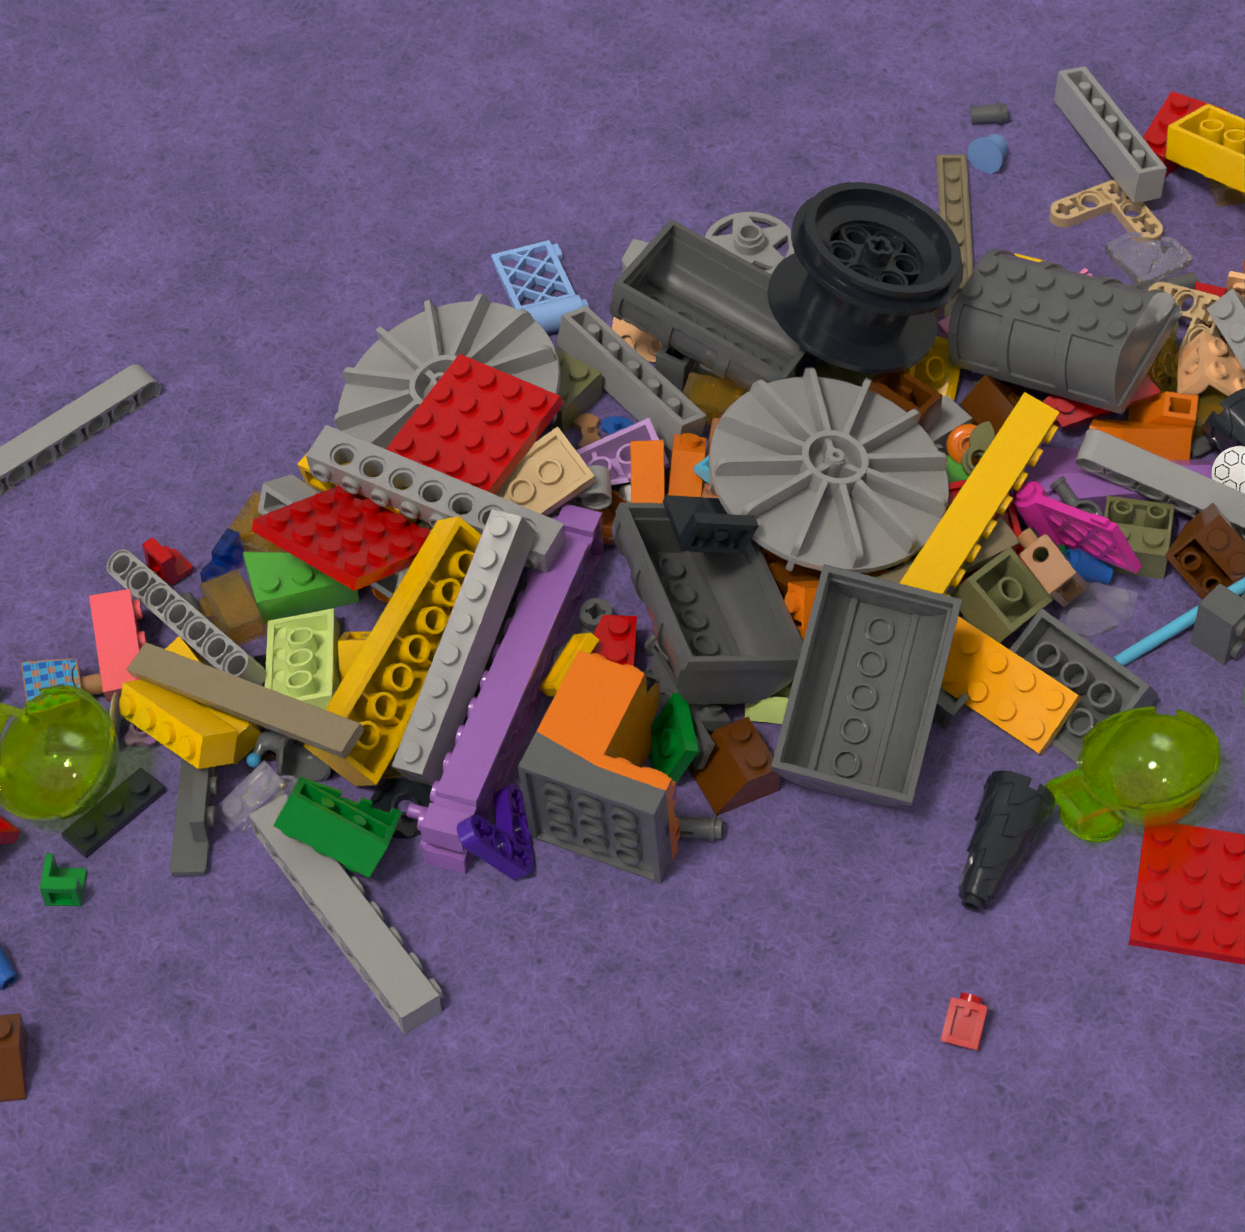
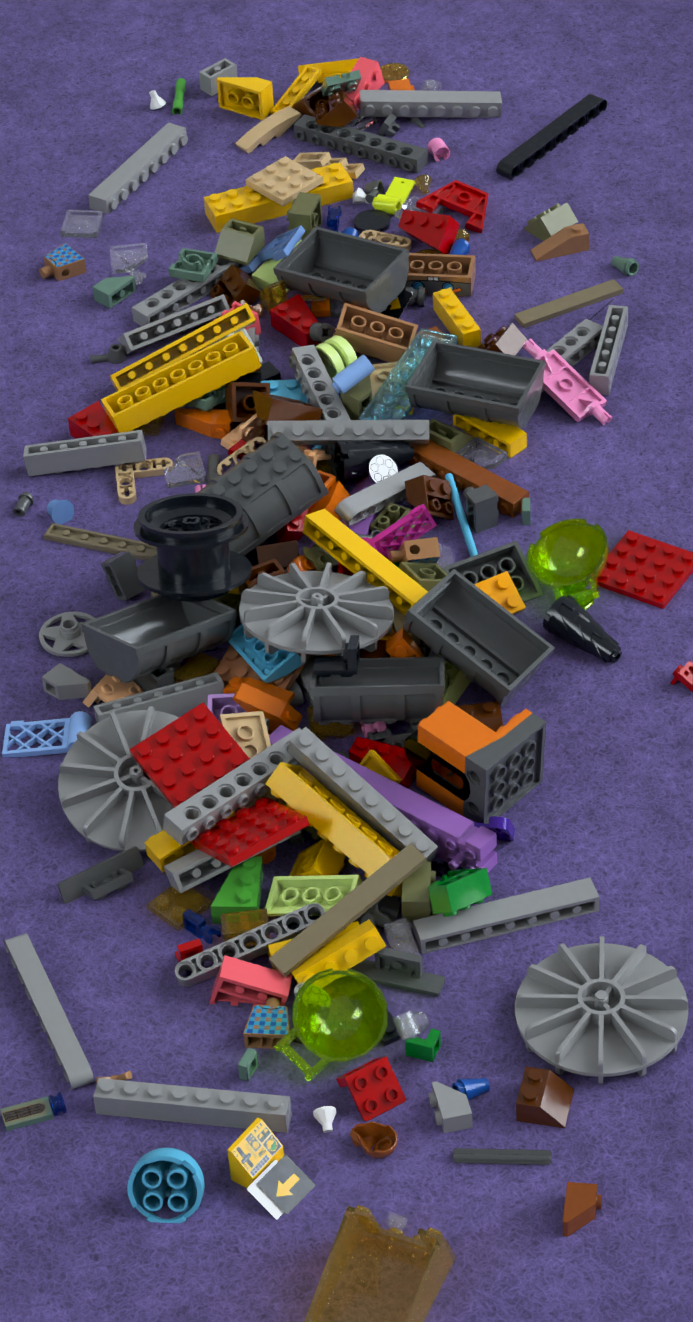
camera: 70 degrees left, 10 degrees down
(82, 848) = (410, 1024): none -> clear piece
(169, 1087) = (601, 1009): none -> light grey piece
(278, 424) = (103, 877): none -> dark grey bracket
(334, 772) = (415, 893): none -> olive slope

